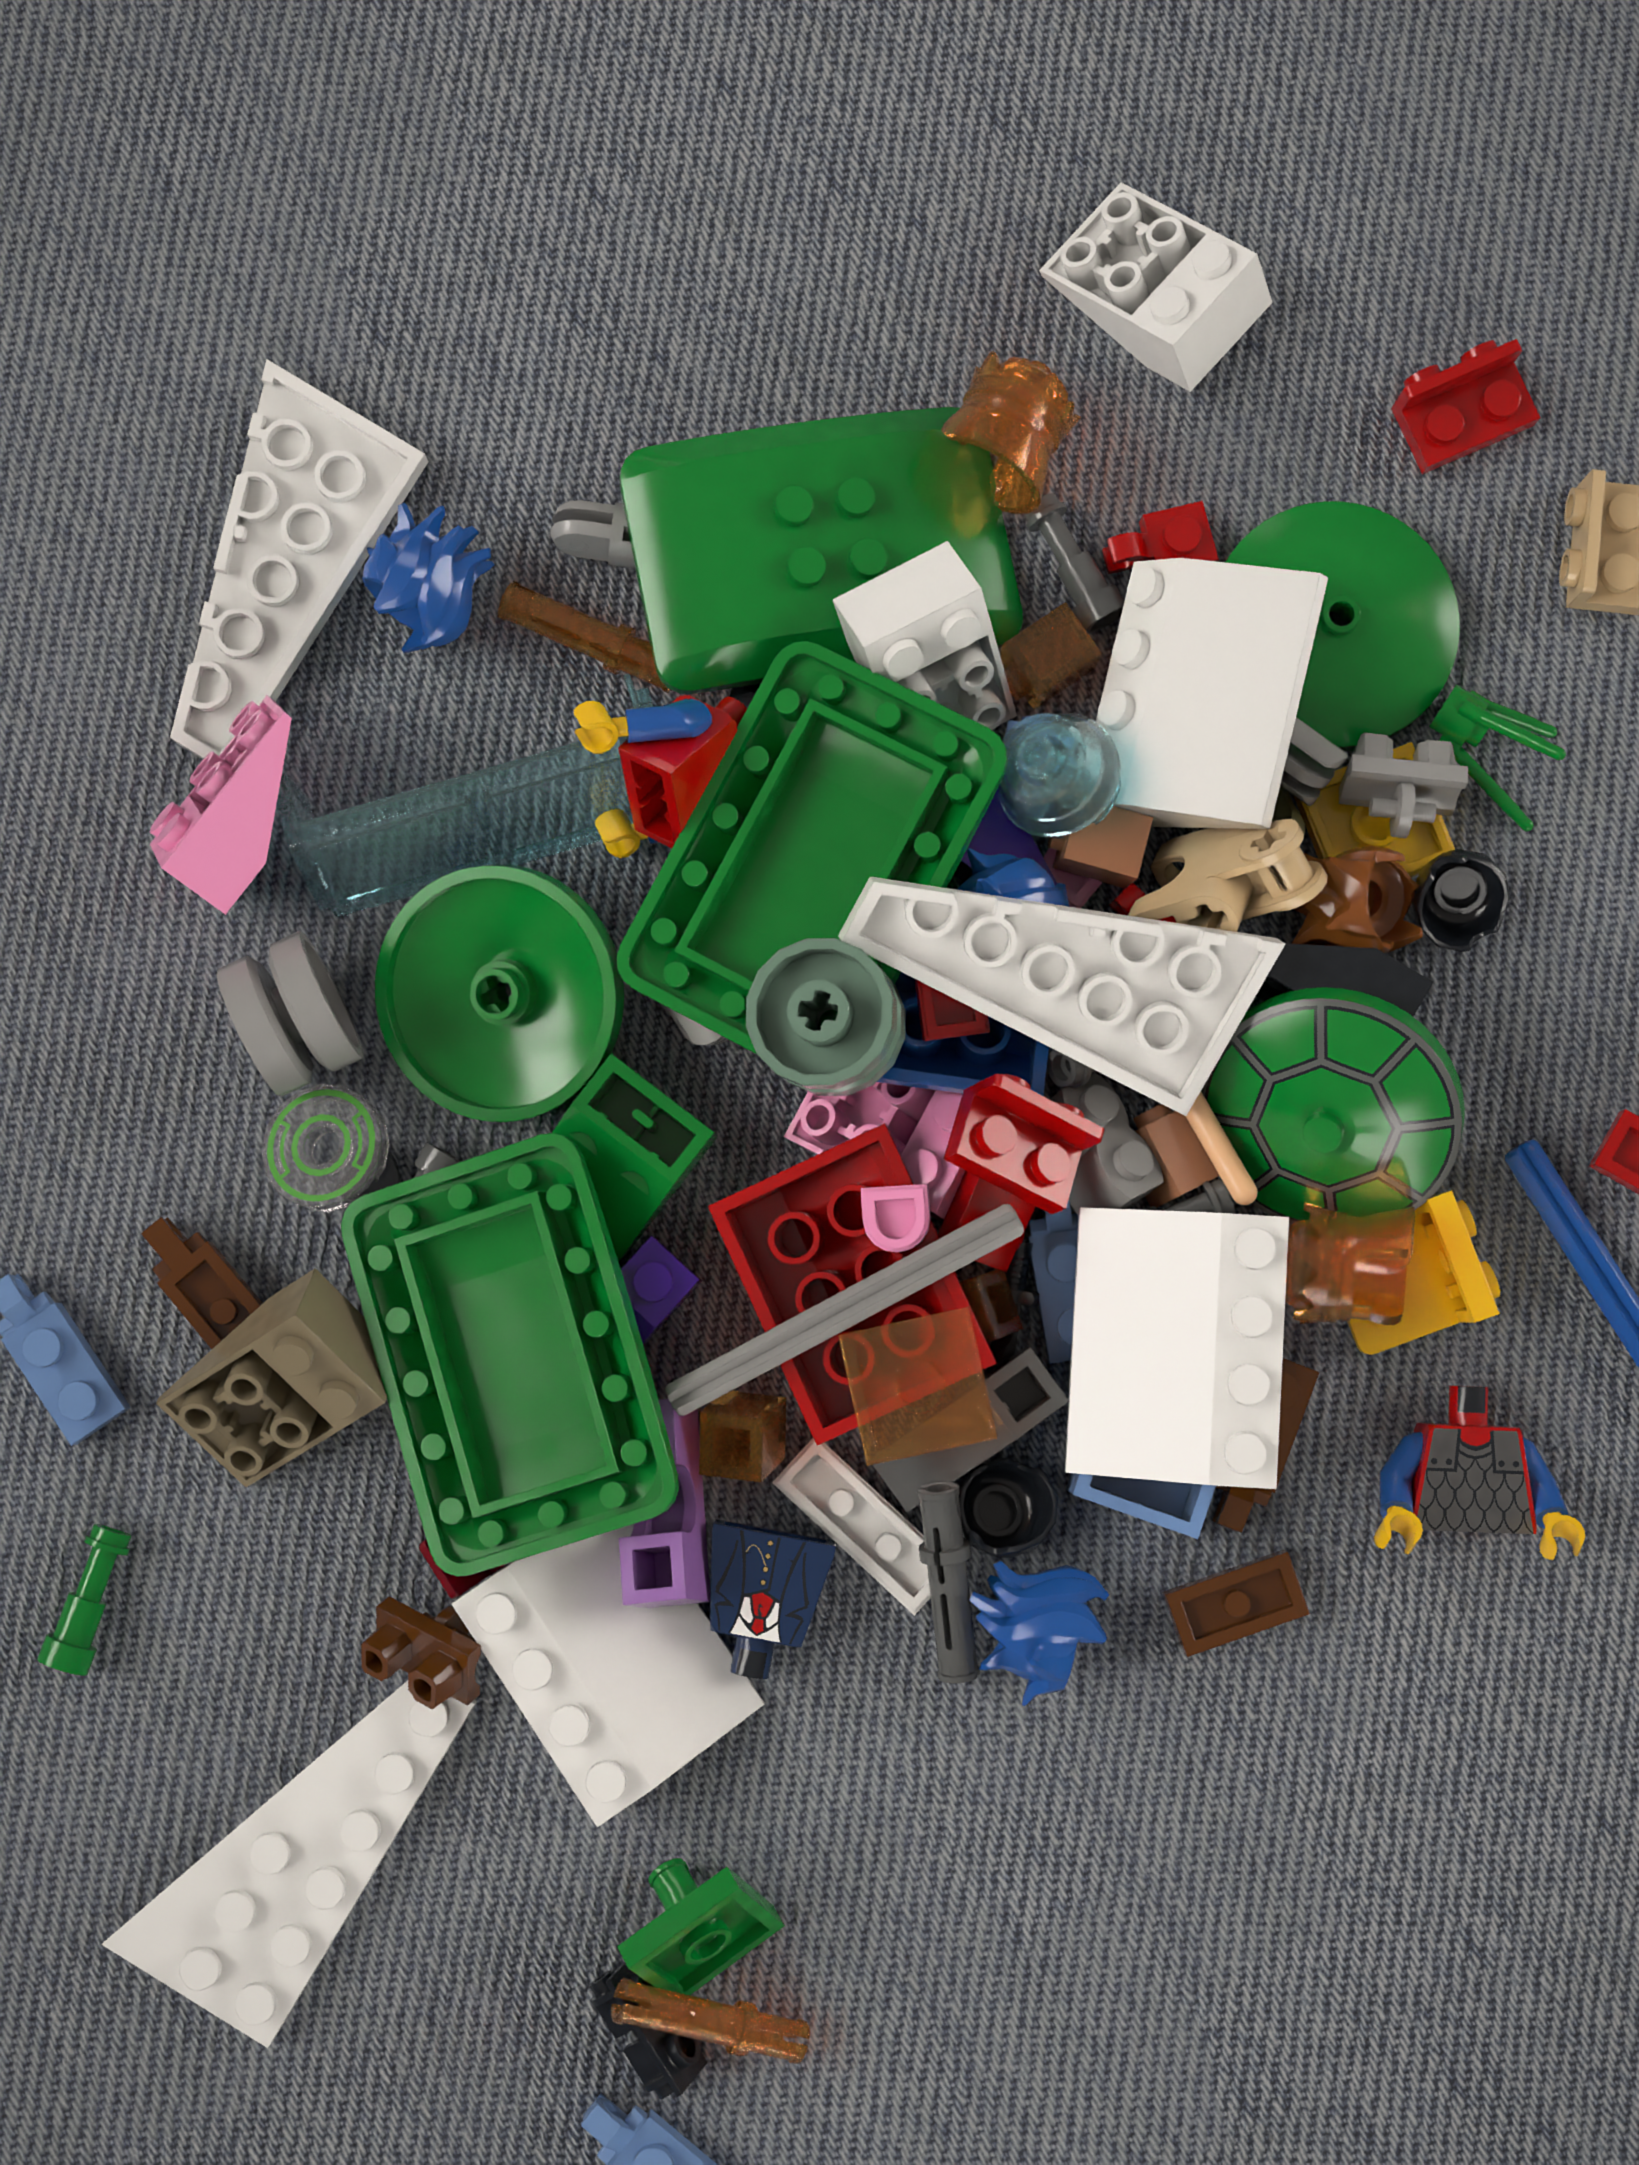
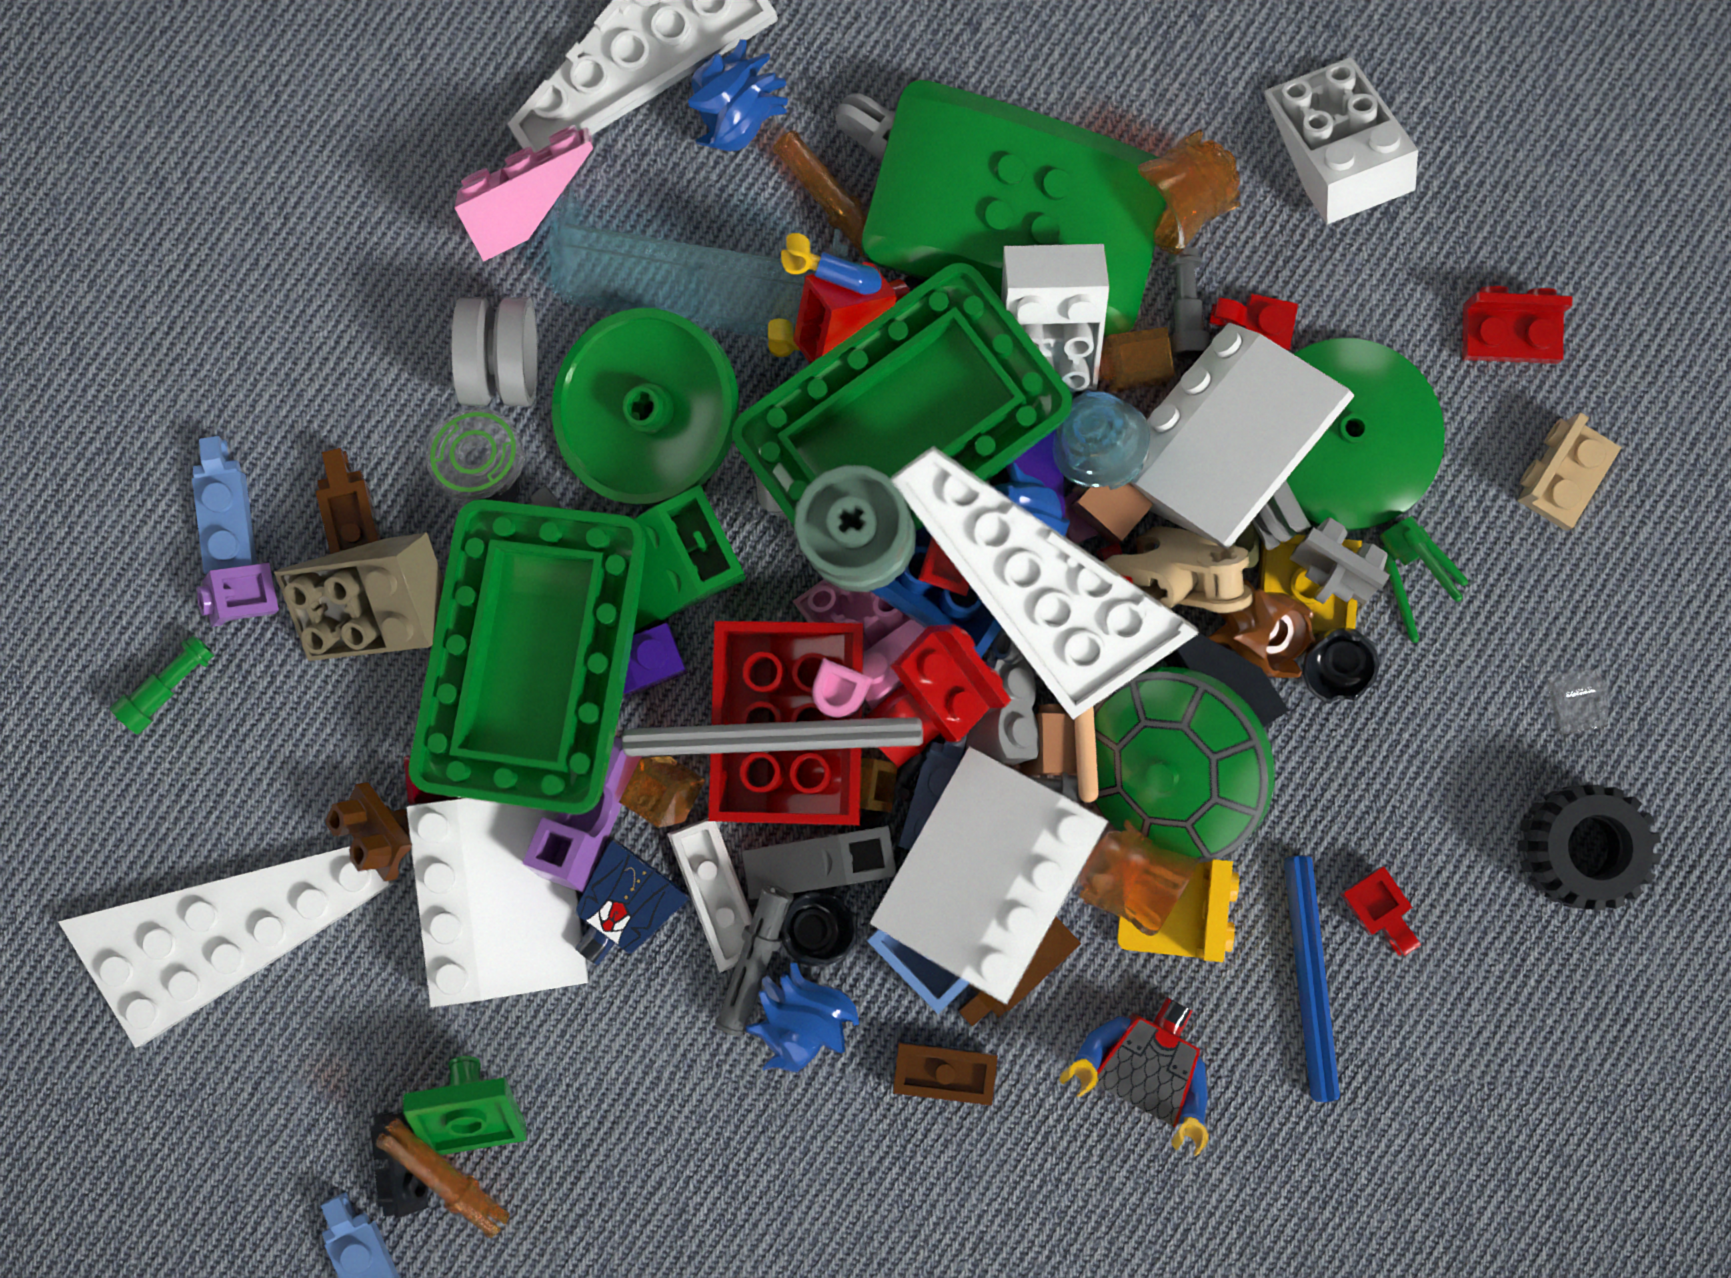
camera: 20 degrees right, 0 degrees up
(123, 1449) = (237, 593): none -> medium lavender bracket
(918, 1386) = (797, 813): clear orange tile -> none

